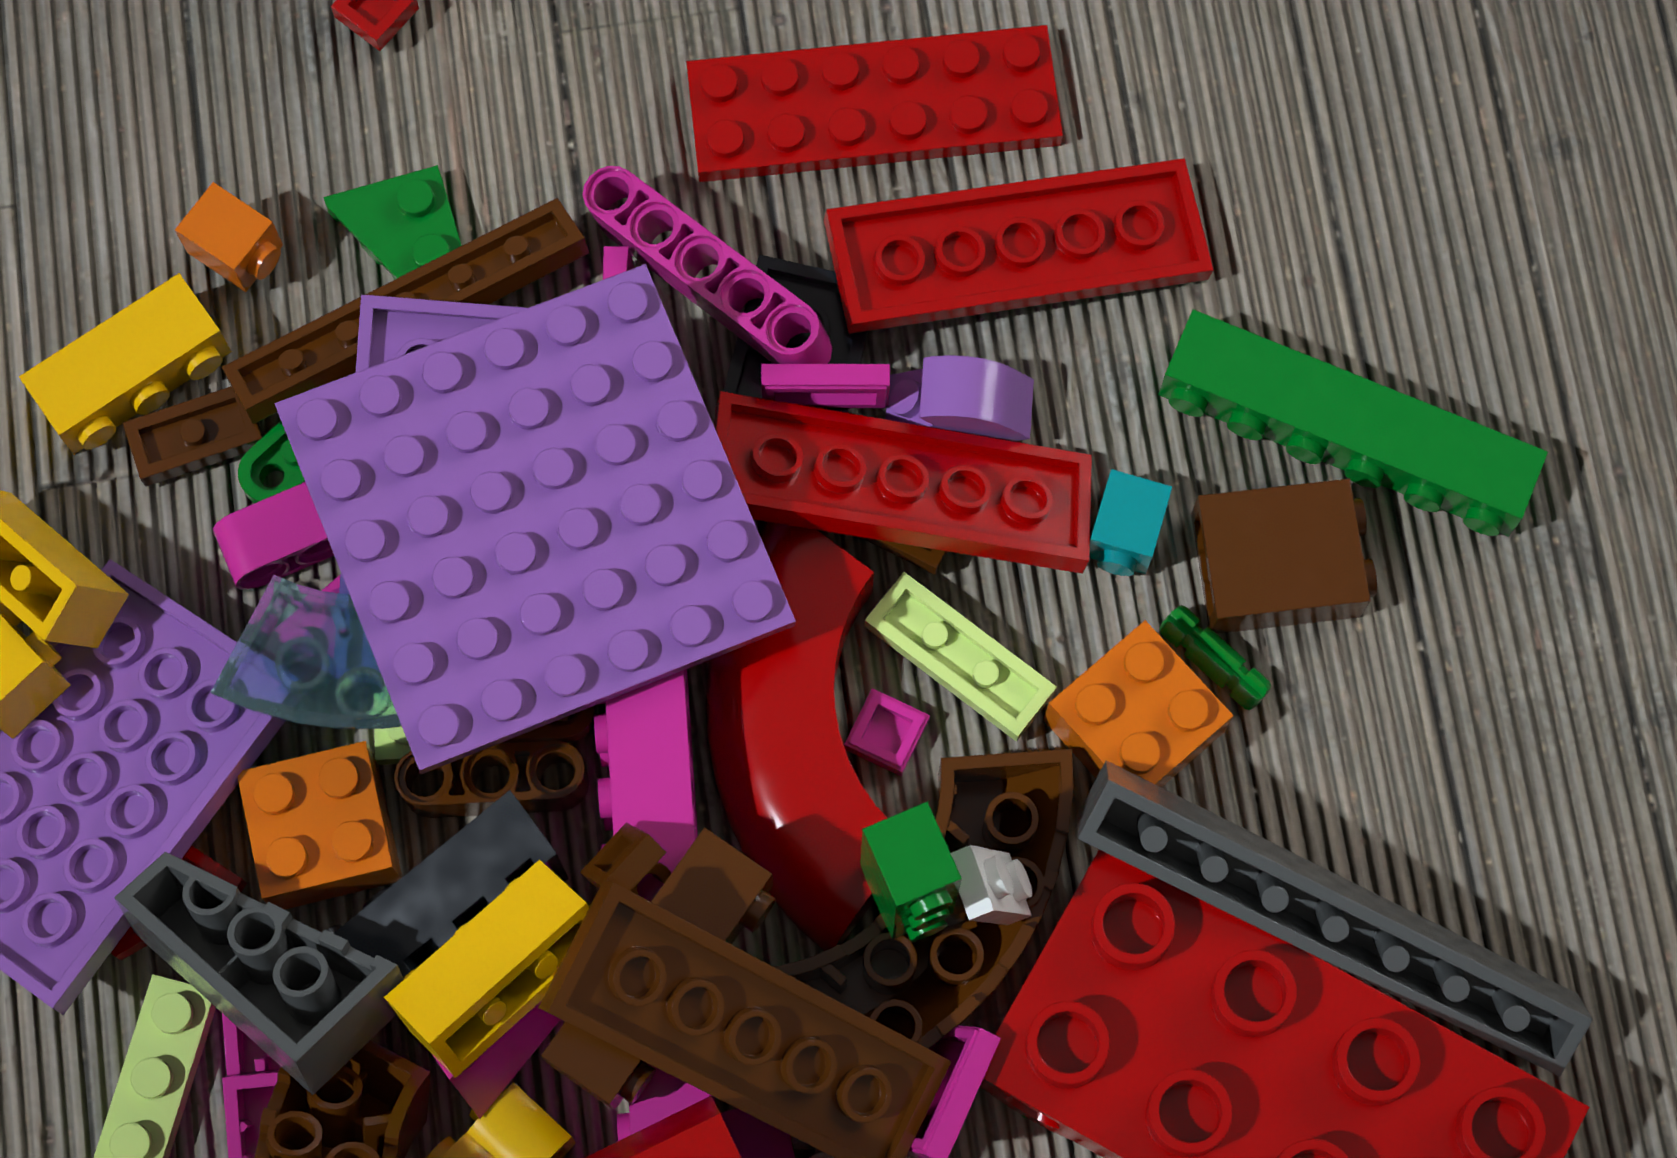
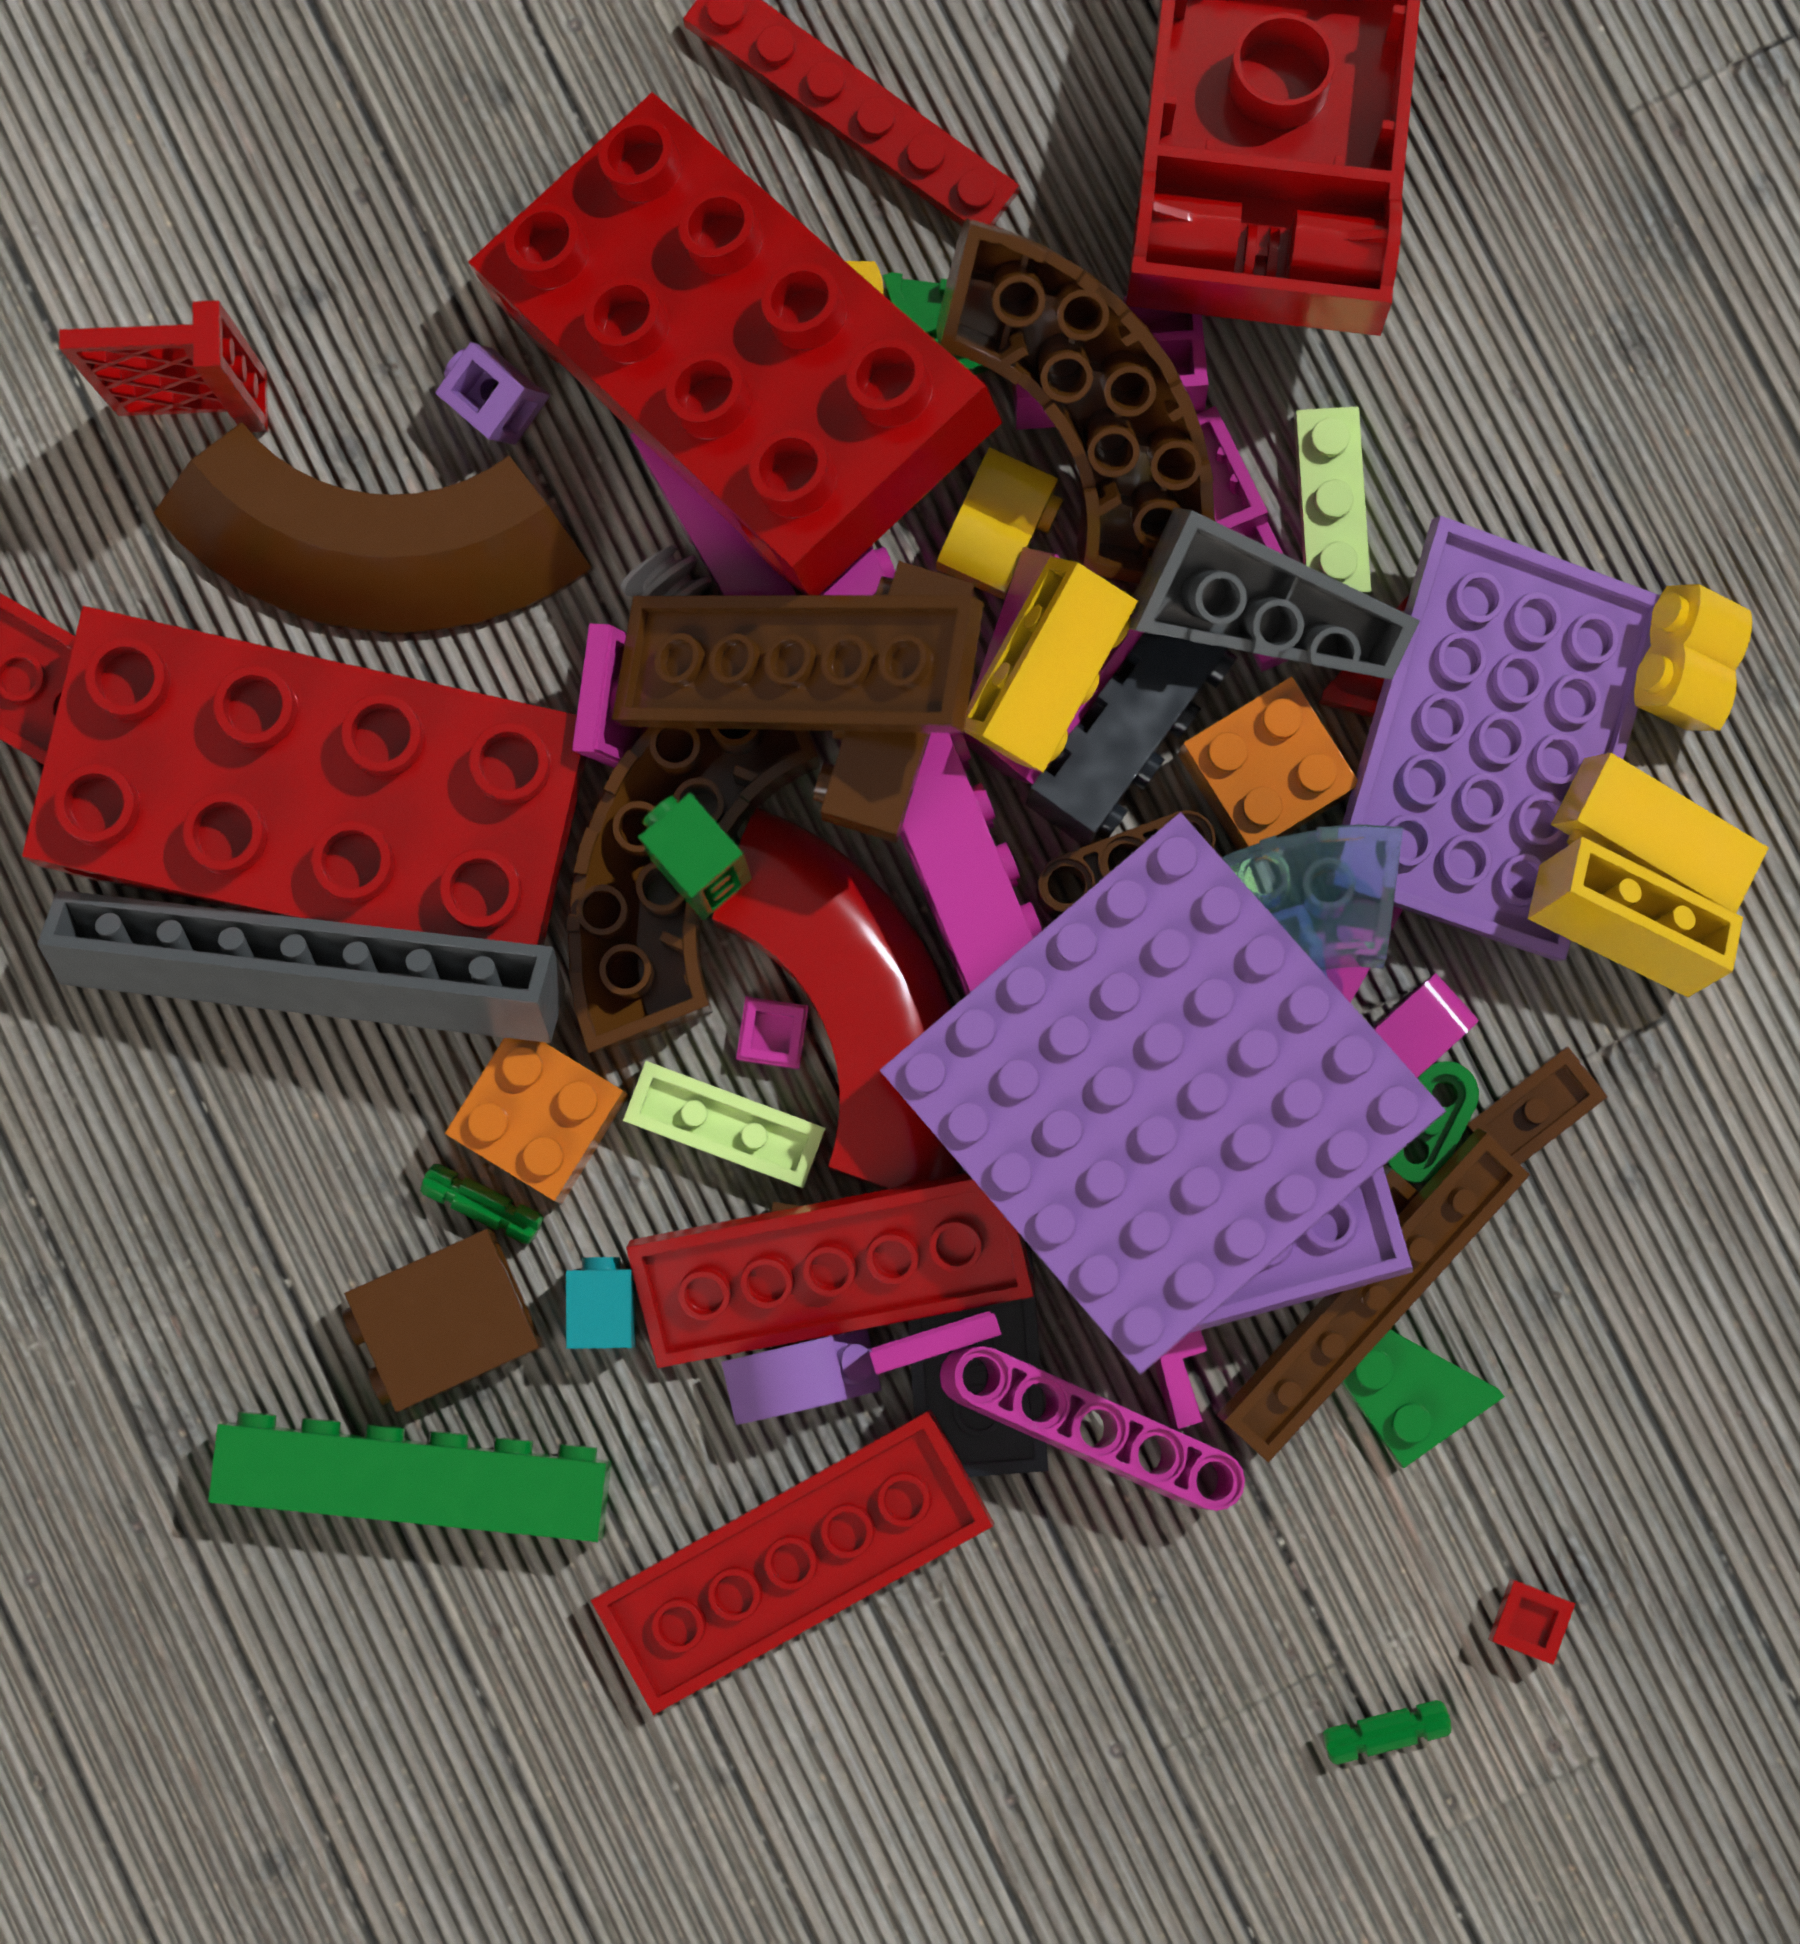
camera: 165 degrees right, 10 degrees up
(126, 365) = (1626, 1156): yellow brick -> none
(230, 237) = (1576, 1317): orange brick -> none
(627, 860) = (961, 786): reddish brown tile -> none
(874, 103) = (988, 1683): red plate -> none
(992, 885) = (620, 879): white plate -> none

